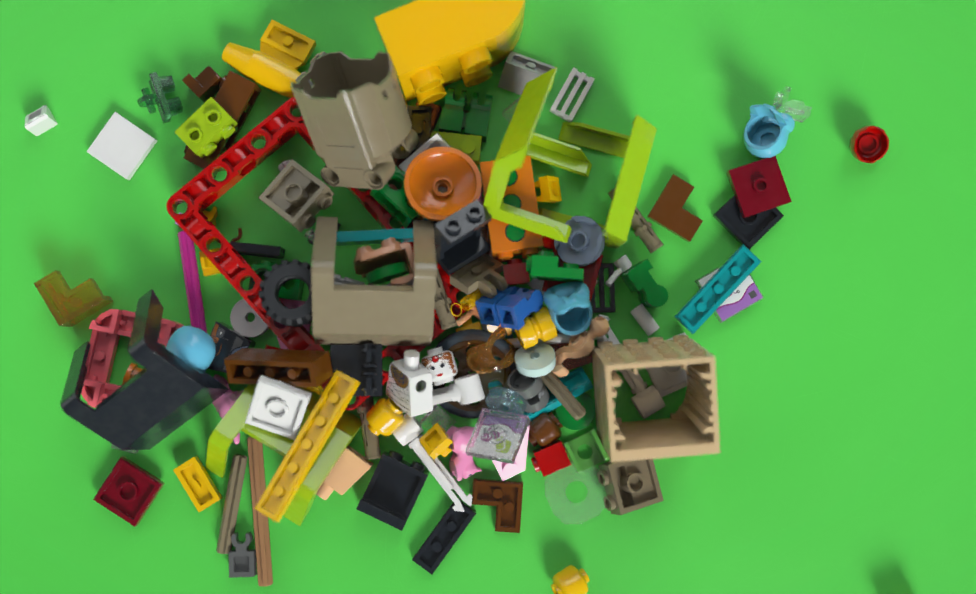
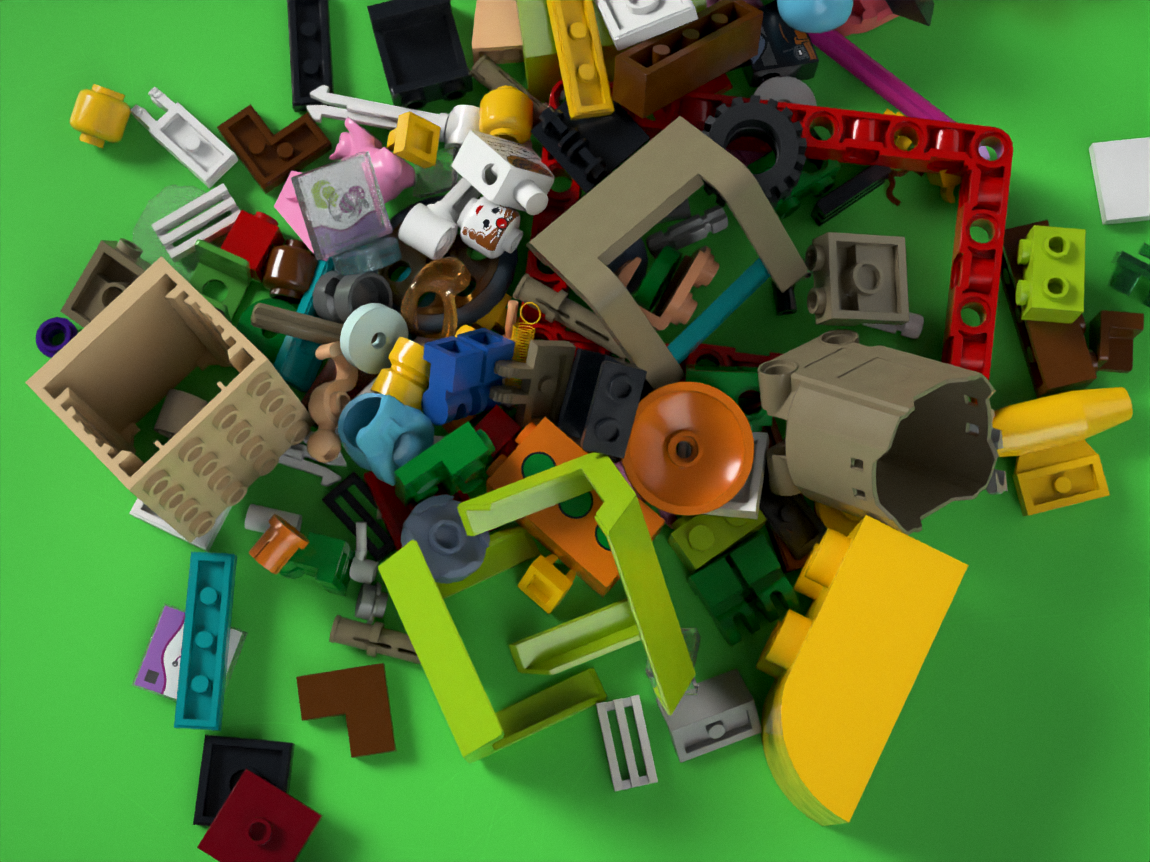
camera: 135 degrees right, 10 degrees down
(538, 538) = (187, 139): none -> white hinge
(544, 488) = (190, 210): none -> white tile
(632, 247) = (371, 602): none -> light grey plate
(658, 293) = (277, 544): none -> orange bush
(679, 495) = (51, 328): none -> dark purple plate

